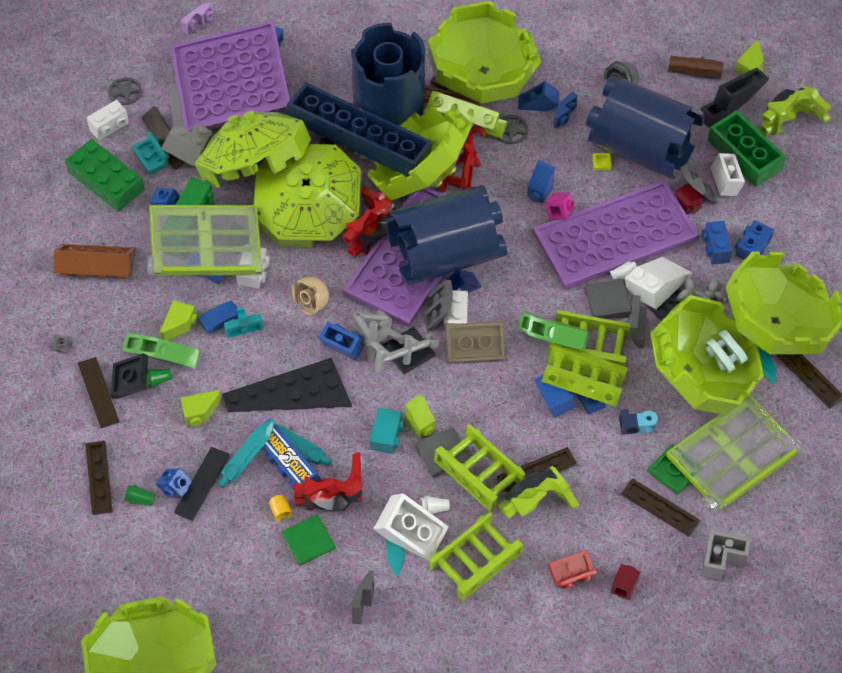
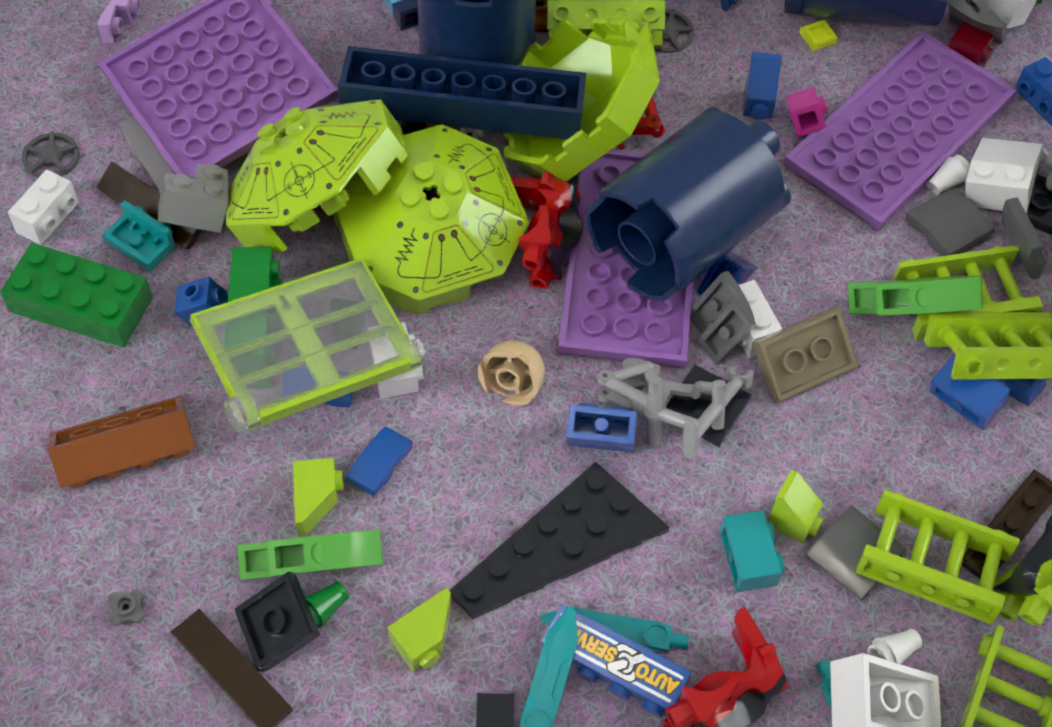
camera: 25 degrees left, 0 degrees up
(243, 324) = (430, 458): teal plate -> none

